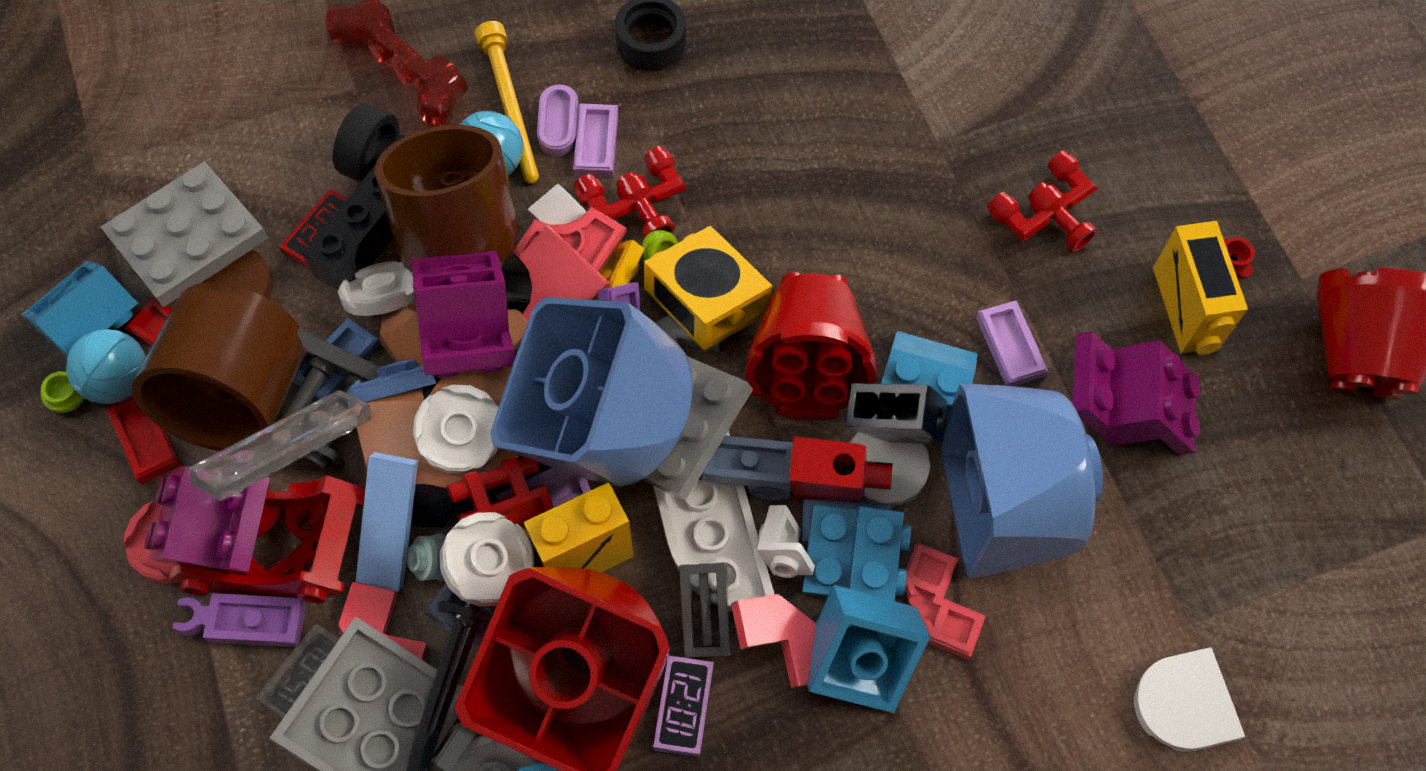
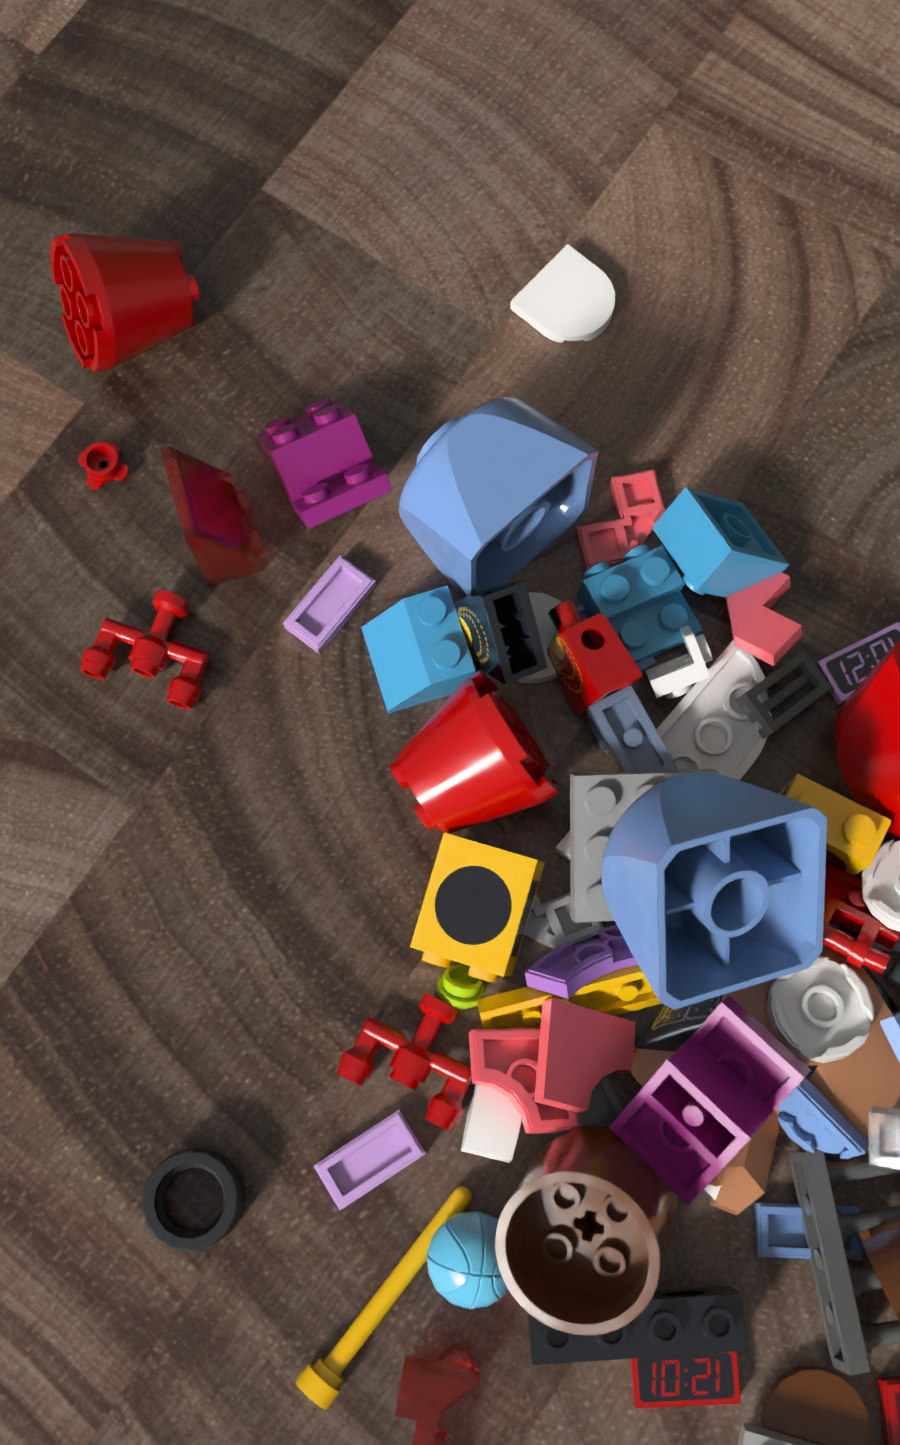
camera: 120 degrees left, 10 degrees up
(362, 139) = (565, 1404): black tyre -> none
(378, 289) = (717, 1241): white tile -> none
(557, 120) = (372, 1222): lavender tile -> none
(1133, 277) = (213, 518): none -> clear red slope
(1199, 287) = (140, 466): yellow brick -> none

